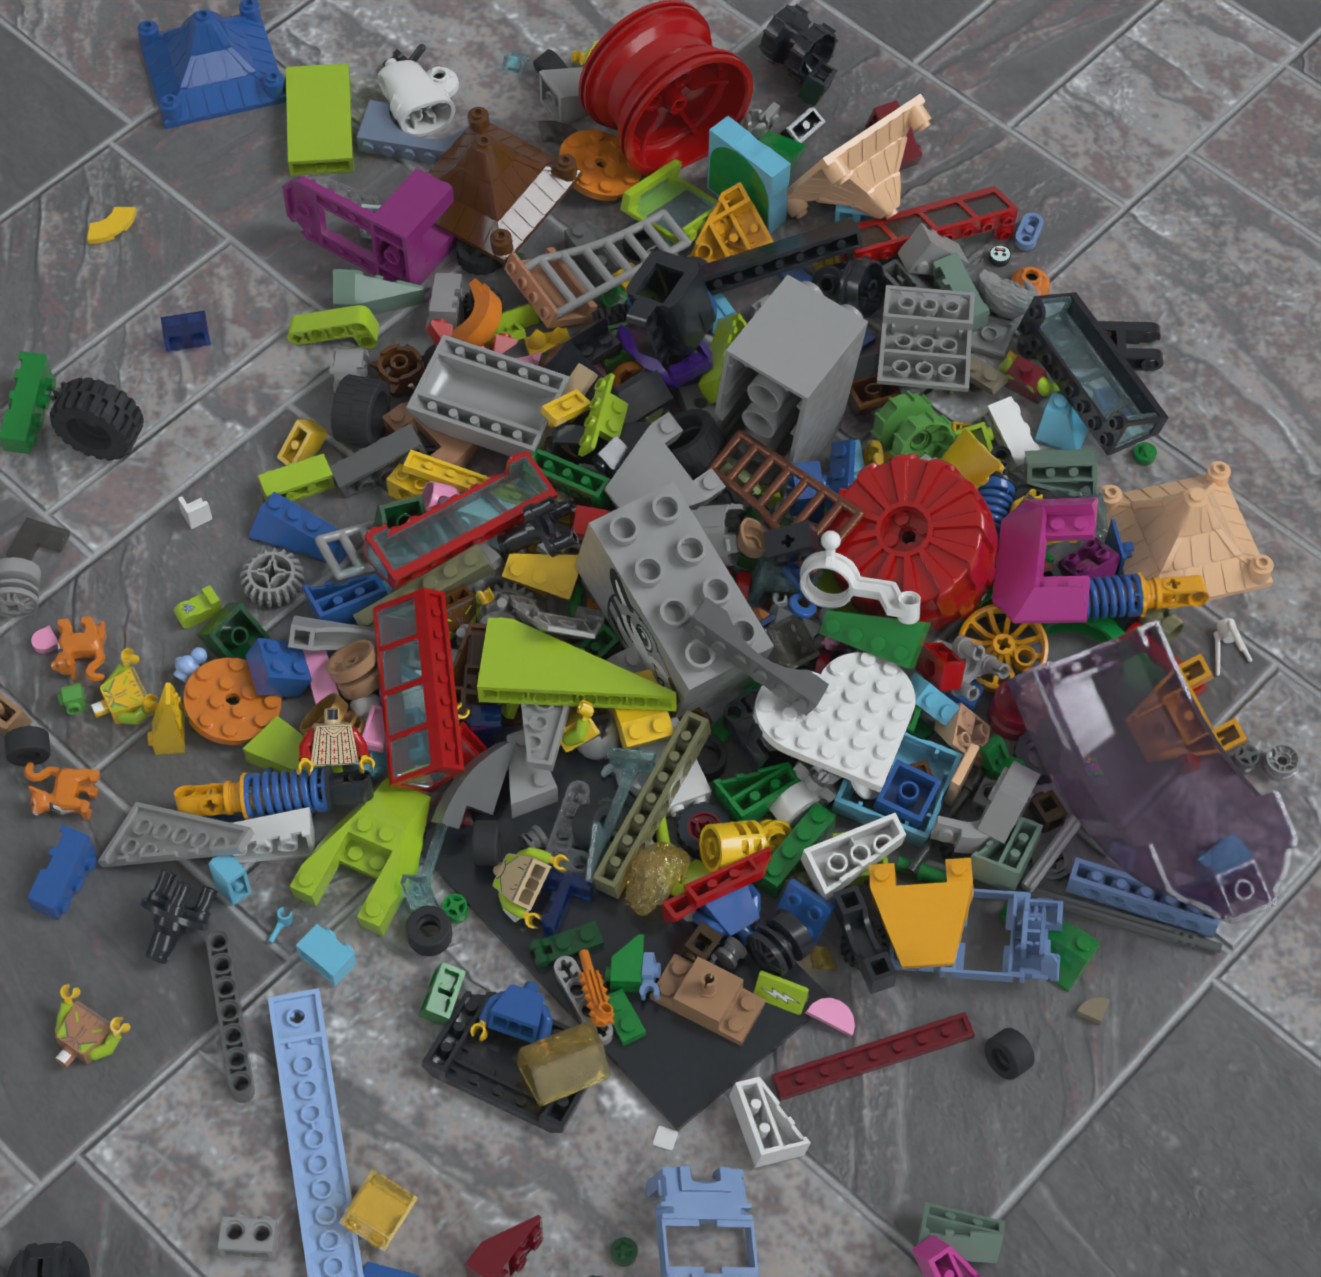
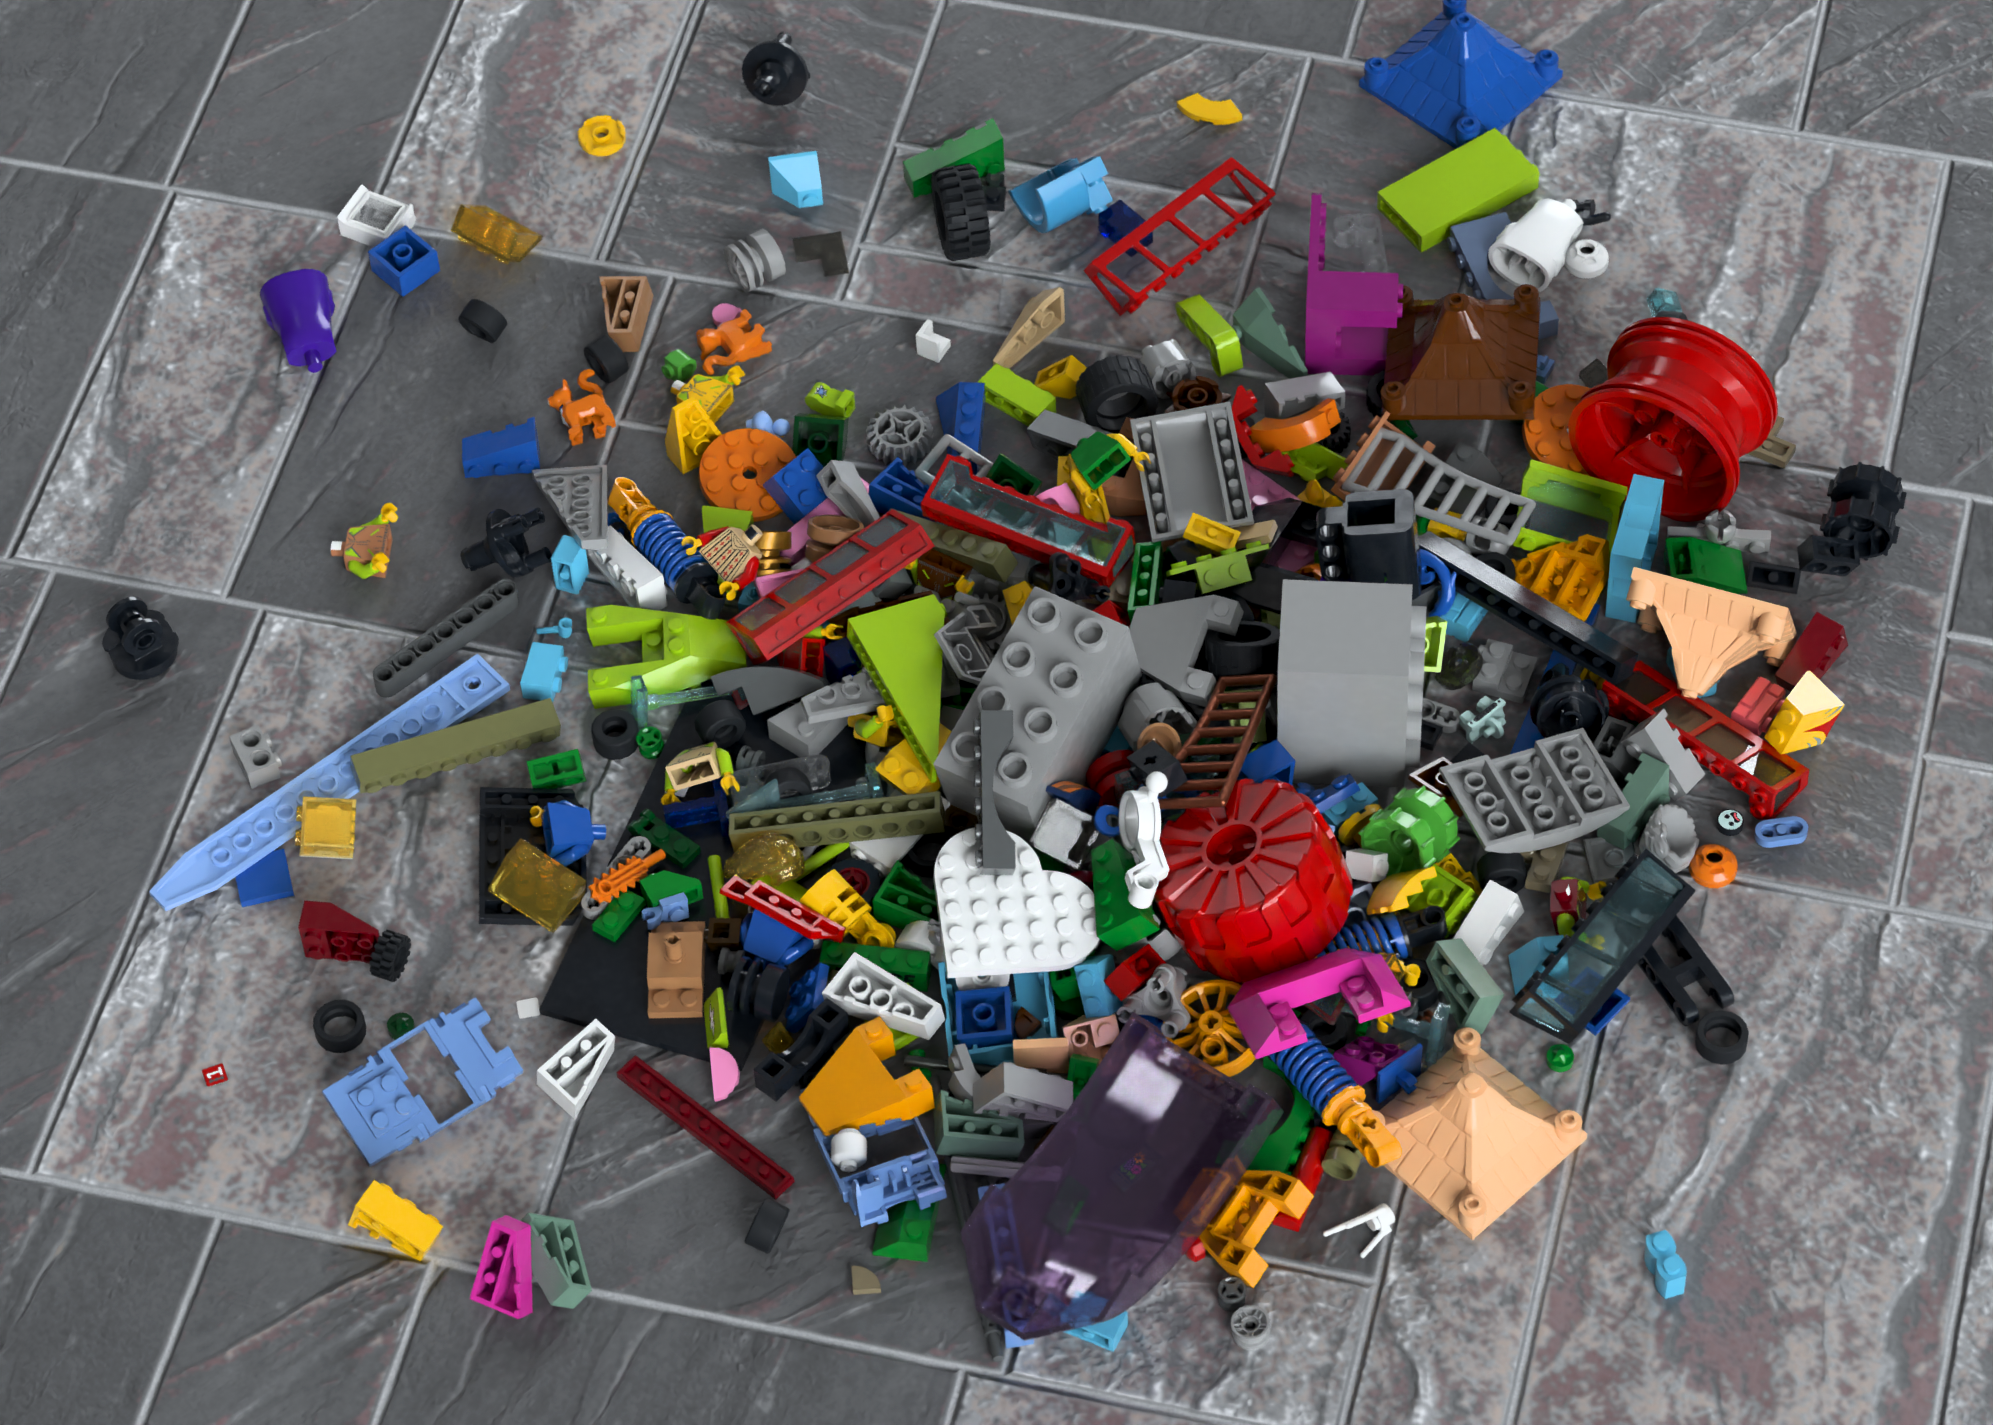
camera: 65 degrees right, 5 degrees down
(138, 335) = (1063, 193): none -> dark azure piece
(210, 303) = (1168, 214): none -> red window
(232, 436) = (1035, 323): none -> tan wedge
(359, 1064) = (455, 746): none -> olive brick
(435, 444) = (1099, 459): none -> green torso
(554, 1222) = (390, 955): none -> black tyre
(647, 929) = (717, 883): none -> lime piece
(916, 188) = (1759, 706): none -> coral brick
(948, 163) = (1804, 716): none -> yellow slope
(970, 403) = (1503, 869): none -> black tyre
(981, 953) = (848, 1149): none -> white head
(1188, 339) = (1725, 1020): none -> black tyre

